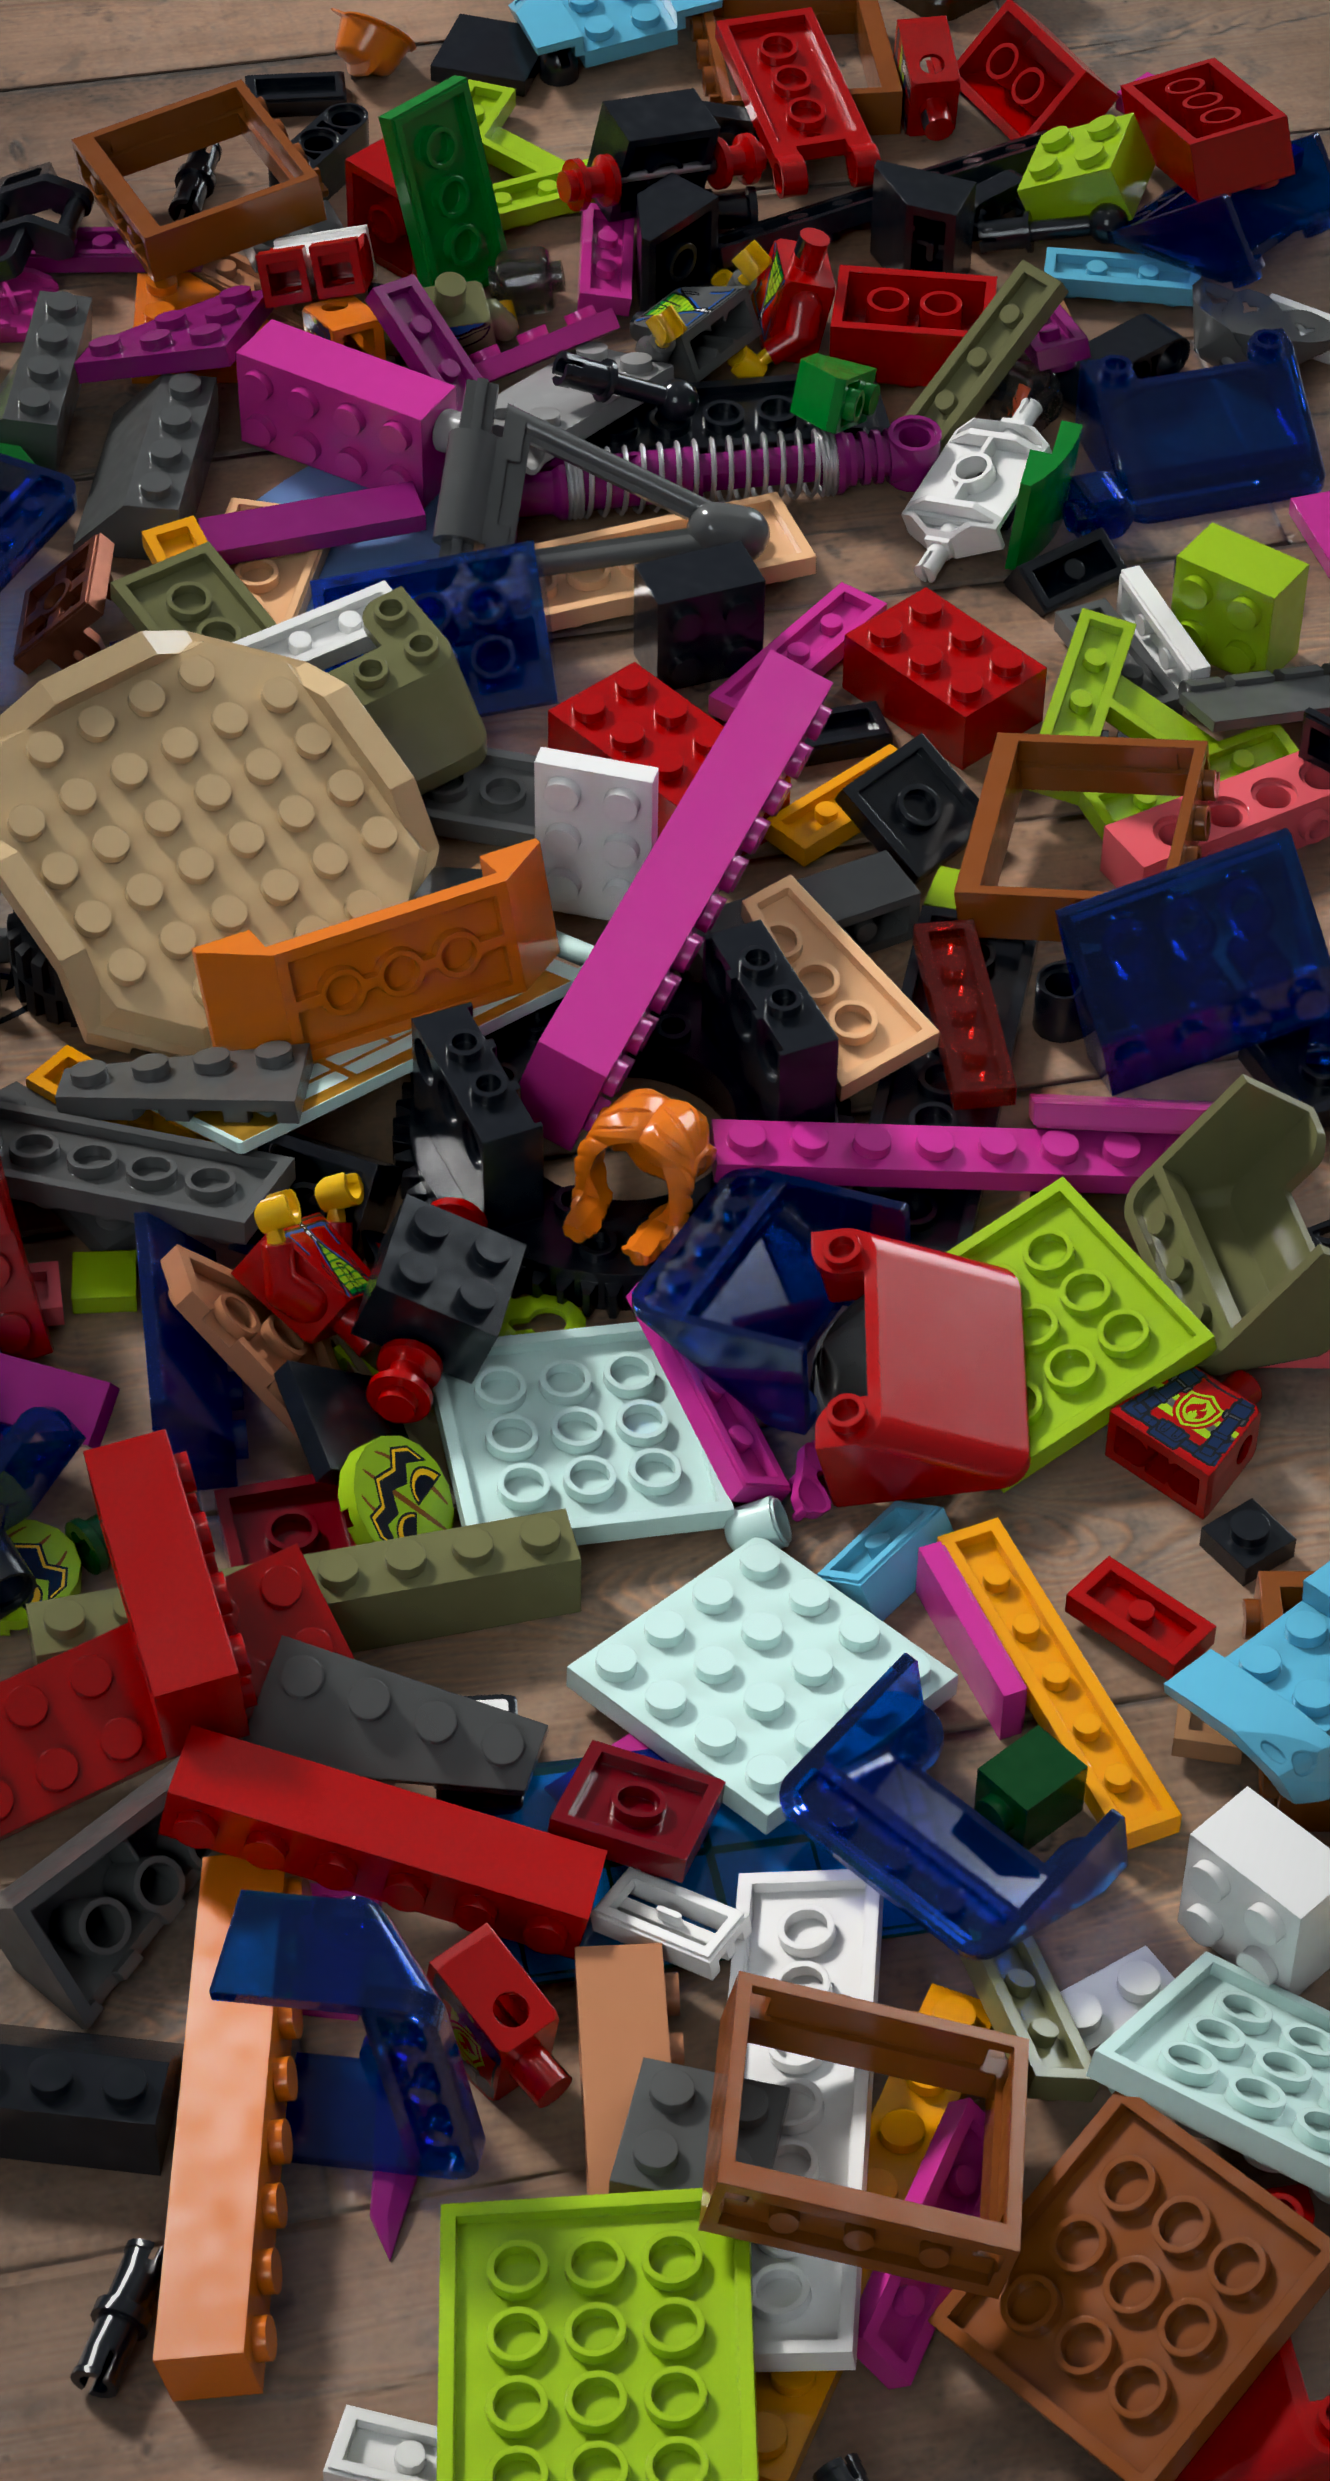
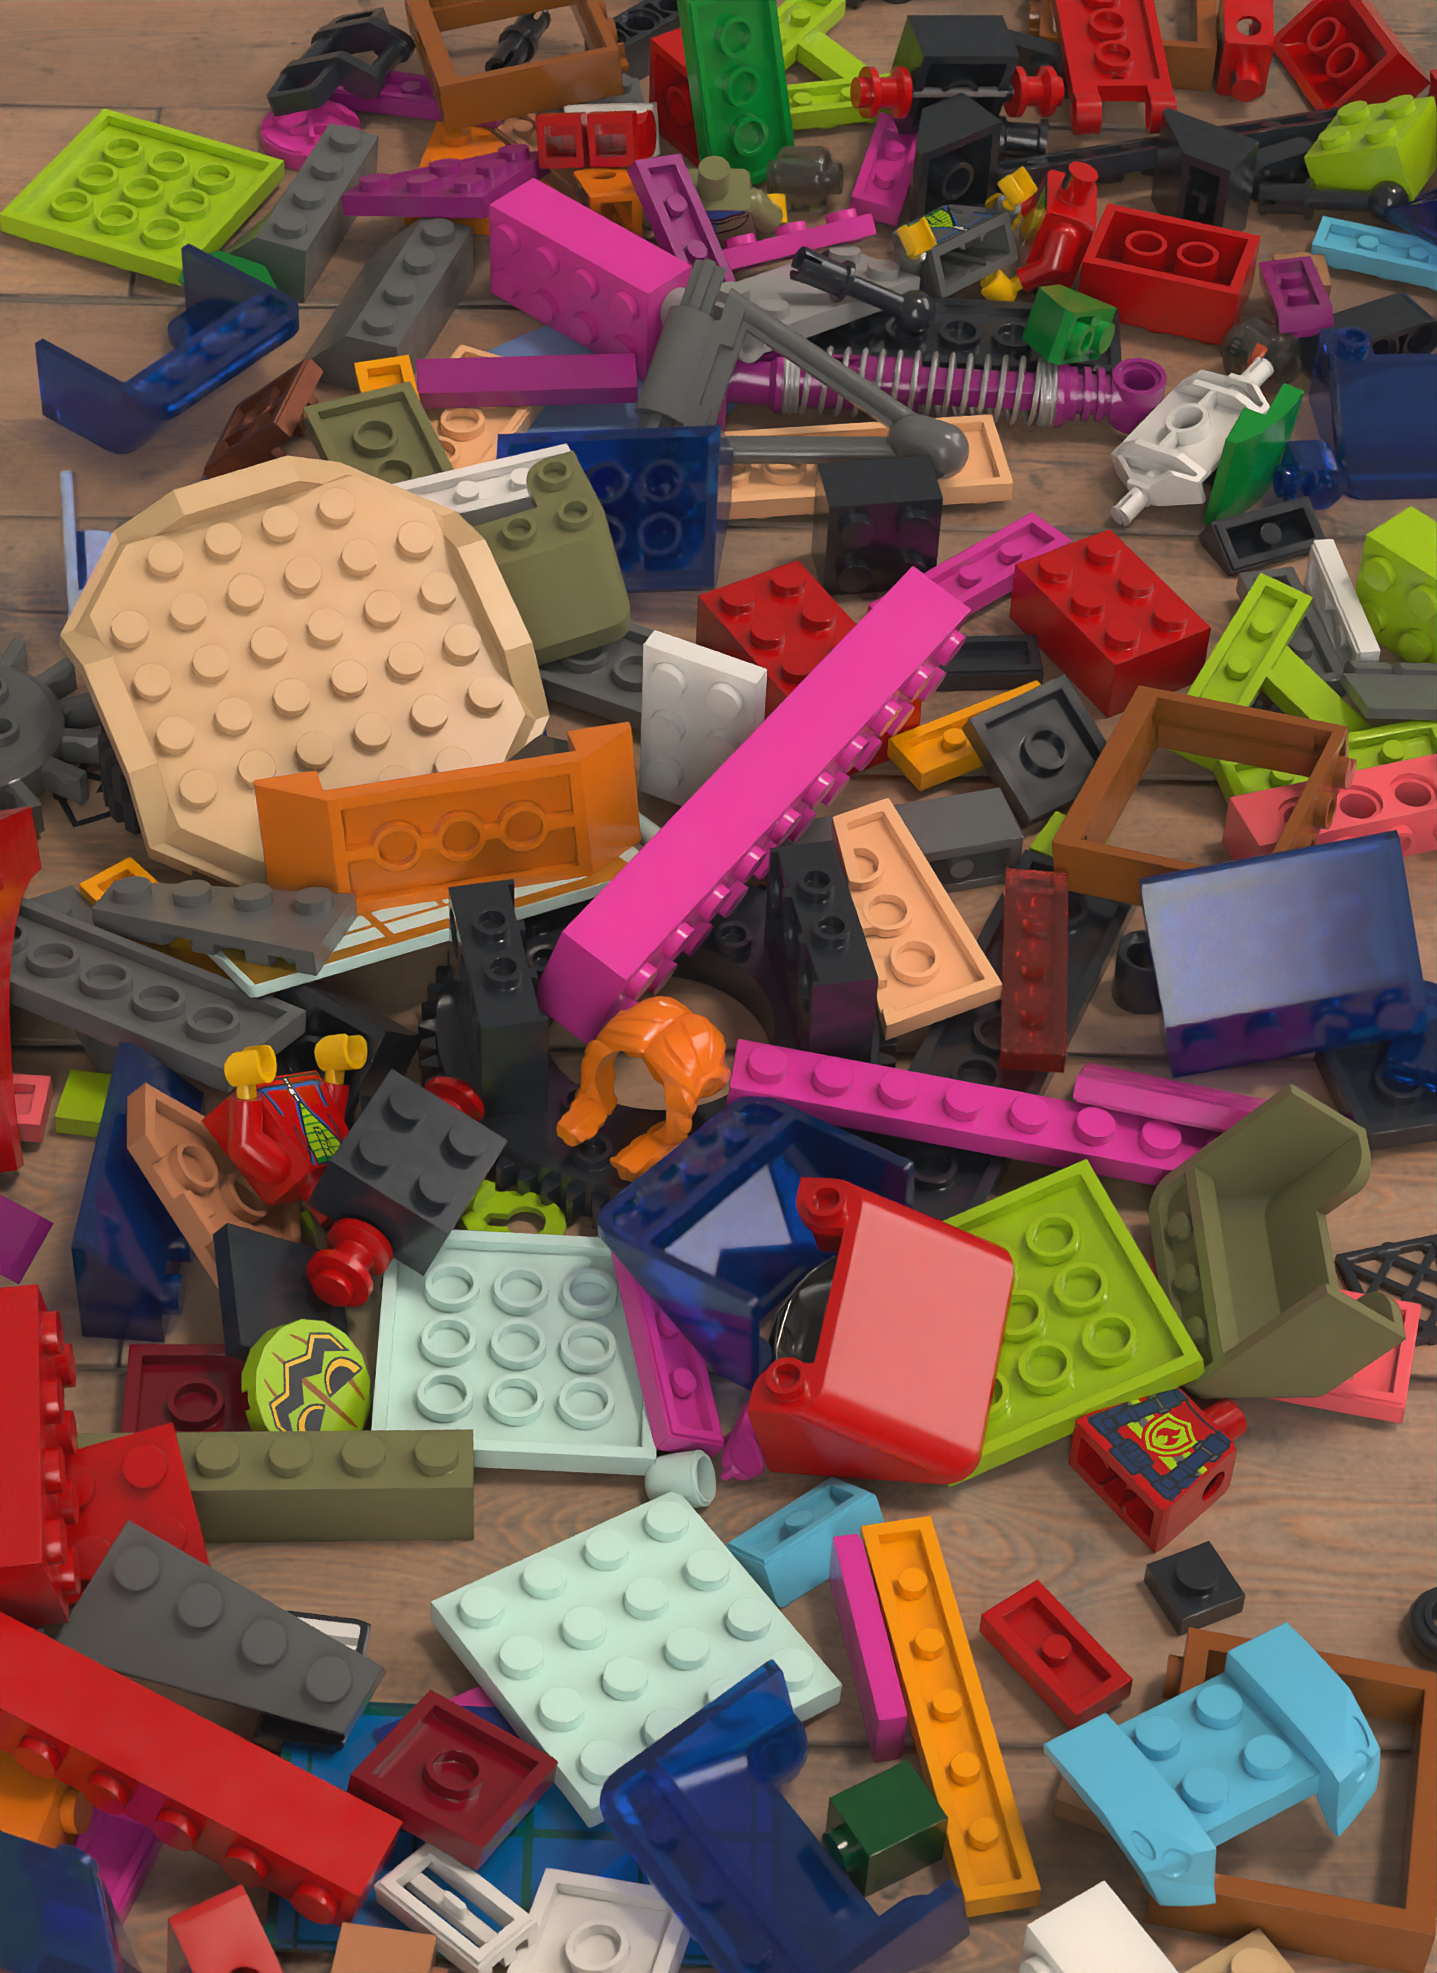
camera: 10 degrees right, 0 degrees up
(990, 349) = (1233, 304): olive plate -> none

